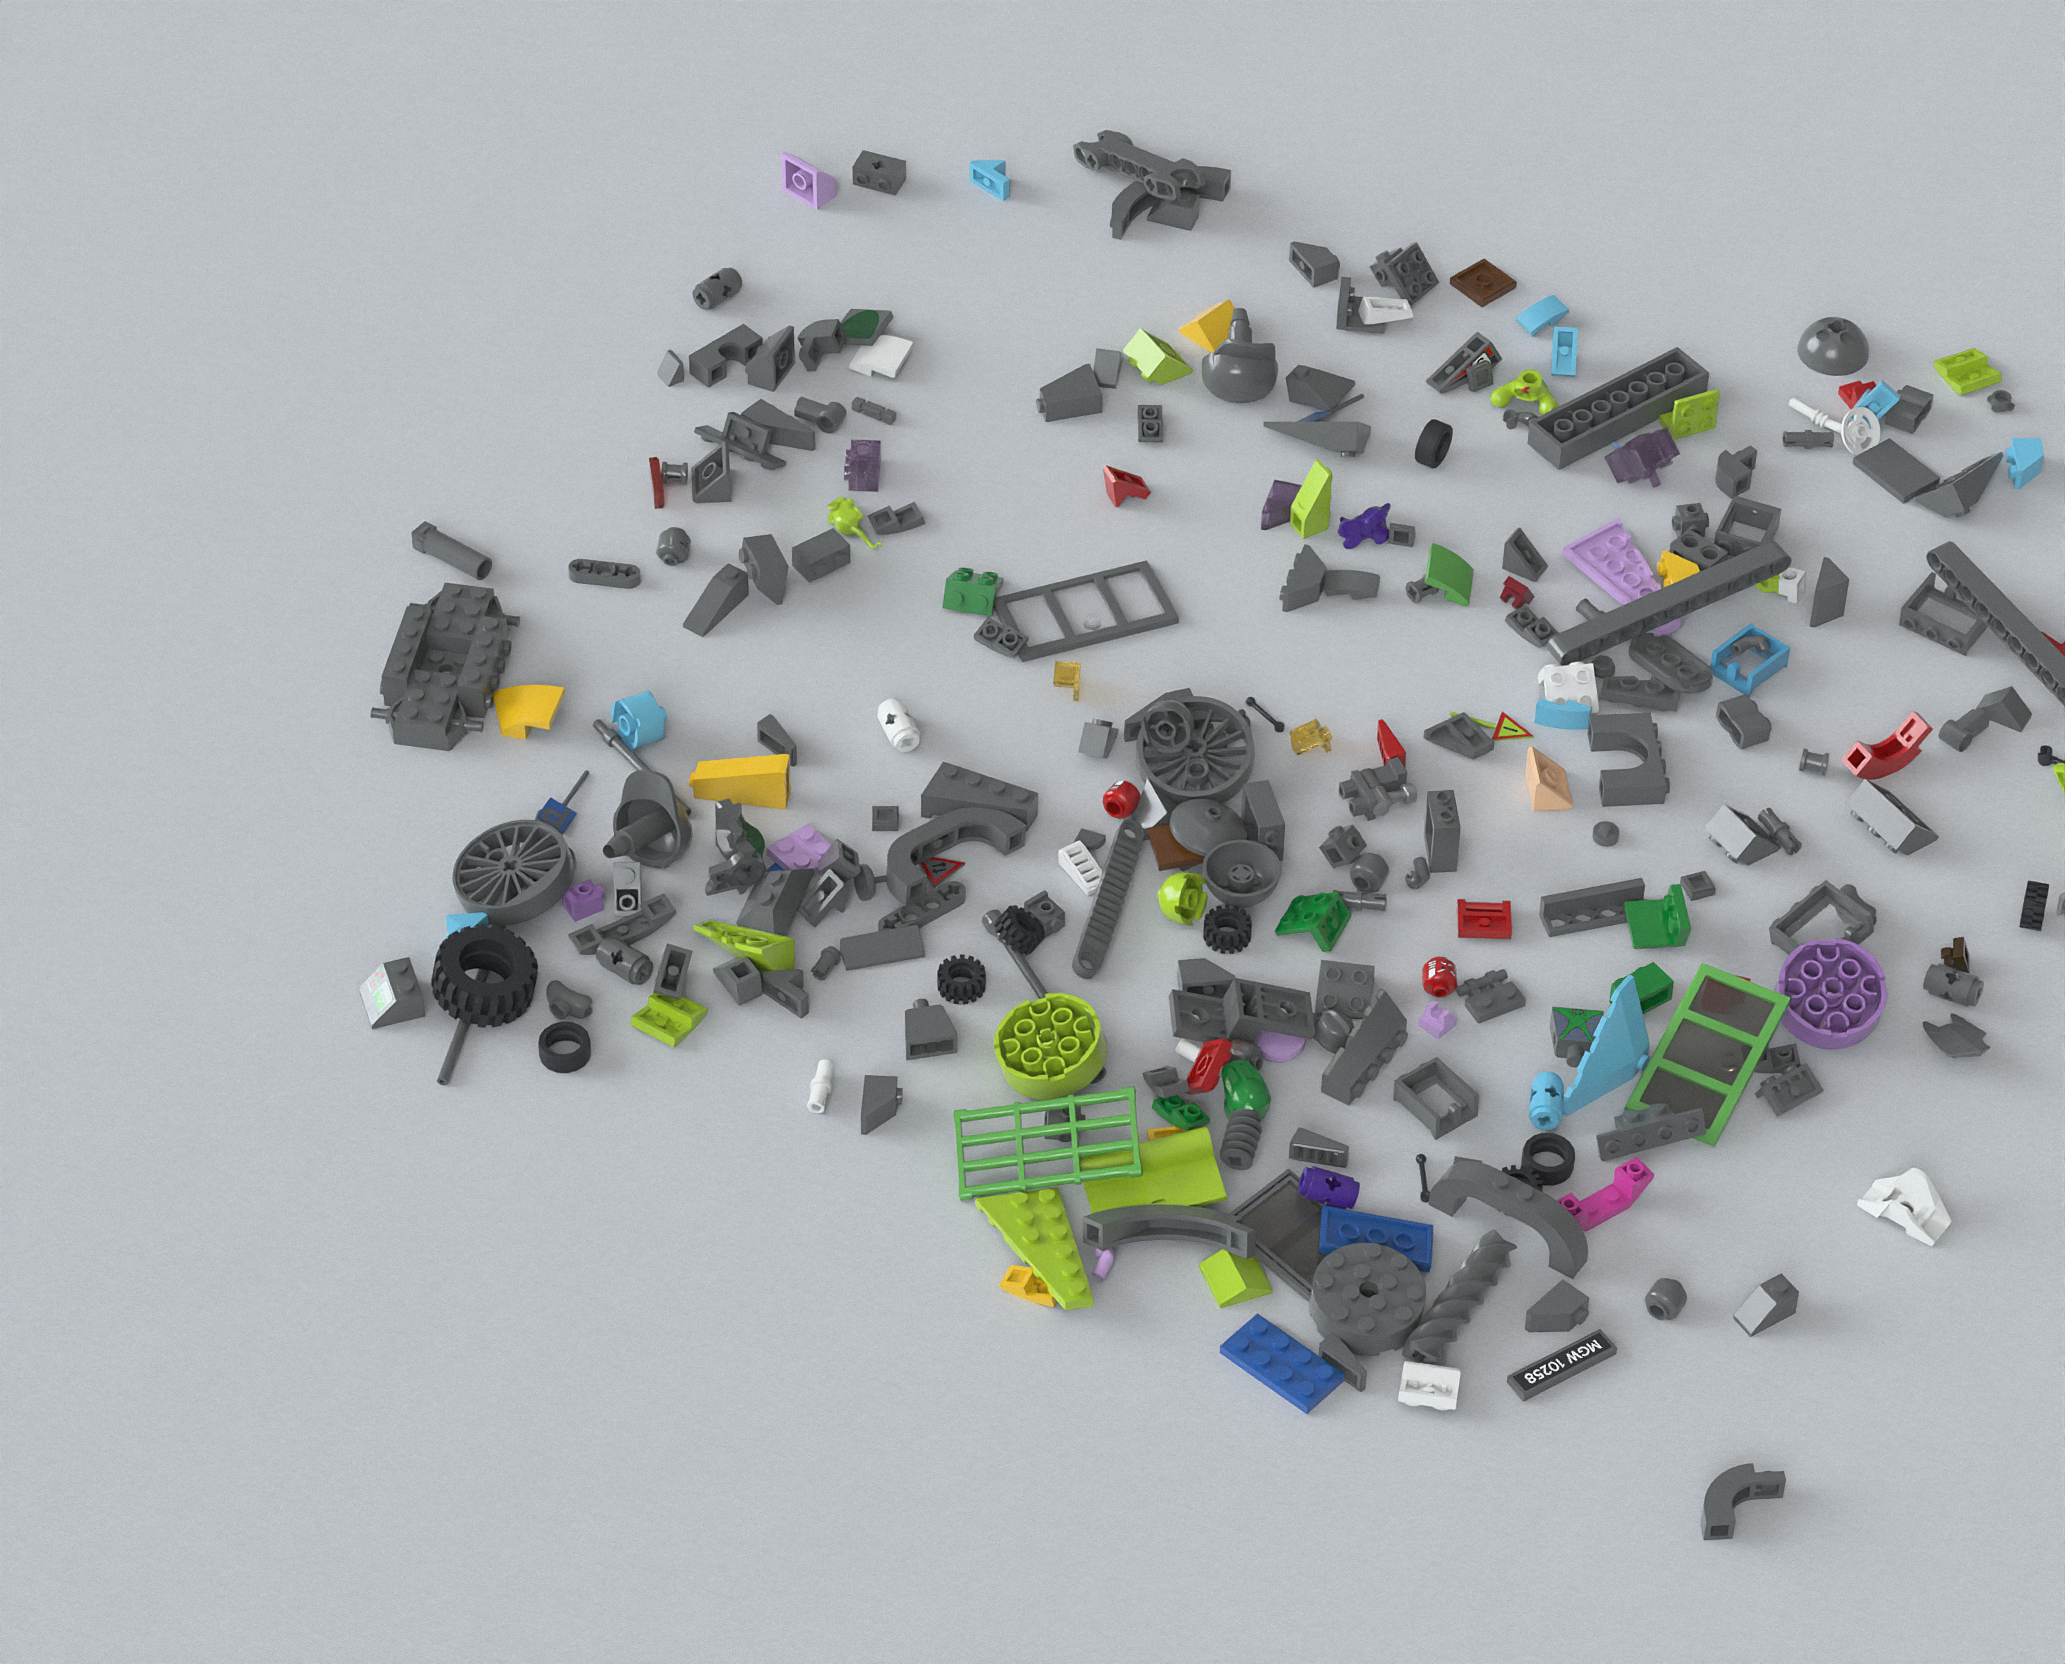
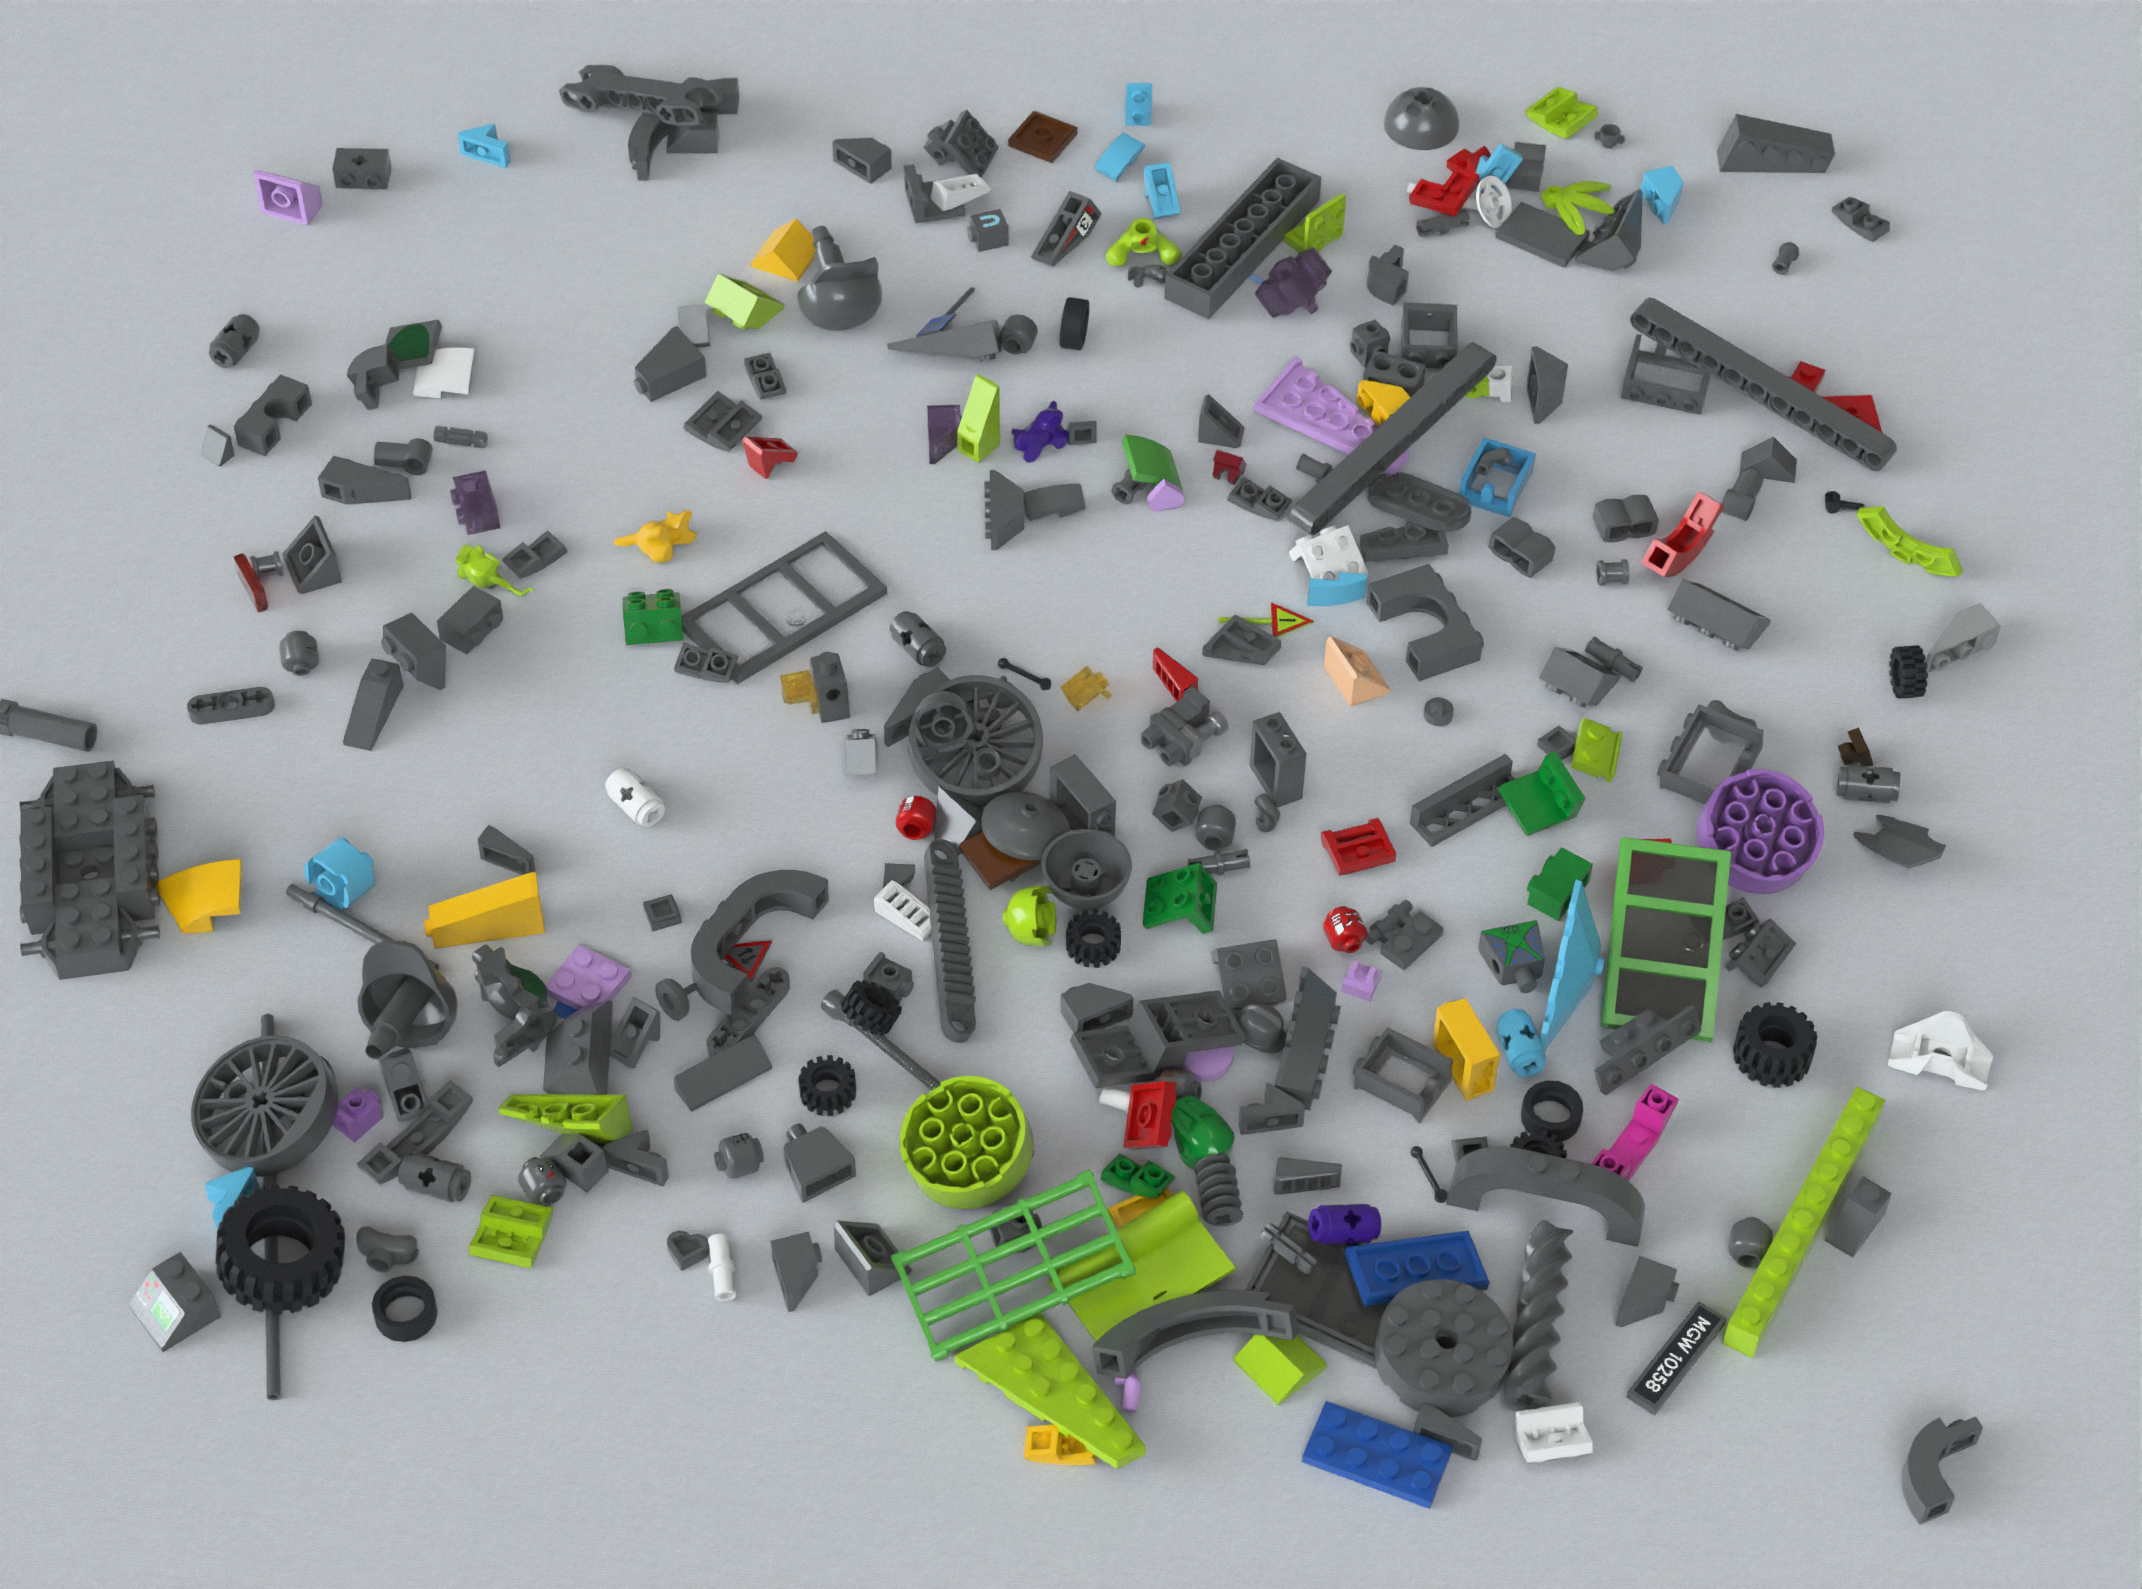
camera: 20 degrees left, 5 degrees up
(558, 814) = (284, 1014): piece -> none
(672, 971) = (497, 1177): dark grey slope -> none
(706, 986) = (542, 1181): none -> dark grey head
(745, 438) = (333, 504): dark grey bracket -> none
(772, 360) = (327, 408): dark grey slope -> none
(800, 1067) = (687, 1248): none -> dark grey tile
(829, 957) = (667, 1102): dark grey pin -> none
(841, 860) = (638, 981): dark grey slope -> none
(868, 1009) = (739, 1155): none -> dark grey head
(937, 1107) = (867, 1254): none -> dark grey slope
(962, 788) = (737, 856): dark grey wedge -> none
(1003, 529) = (659, 537): none -> yellow animal
(1095, 669) = (826, 675): none -> dark grey torso
(1096, 450) = (722, 422): none -> dark grey slope
(1165, 1082) = (1104, 1145): dark grey slope -> none
(1185, 663) = (917, 639): none -> dark grey piece
(1275, 1194) = (1289, 1248): none -> dark grey axle
(1316, 387) = (925, 292): dark grey slope -> none
(1319, 1098) = (1276, 1114): none -> dark grey slope
(1383, 441) = (1018, 334): none -> dark grey head
(1396, 350) = (988, 230): none -> dark grey brick
(1449, 604) = (1165, 496): none -> lavender tile
(1479, 376) = (1086, 237): dark grey tile -> none
(1494, 1090) = (1465, 1040): none -> yellow window
(1577, 274) = (1138, 104): none -> medium azure bracket
(1603, 666) = (1355, 523): dark grey plate -> none
(1717, 1295) = (1803, 1222): none -> lime brick
(1727, 897) = (1596, 749): none -> lime plate
(1758, 1175) = (1769, 1063): none -> black tyre
(1819, 417) = (1447, 197): none -> red plate
(1848, 721) = (1625, 518): none -> dark grey brick
(1925, 444) = (1564, 198): none -> lime plant

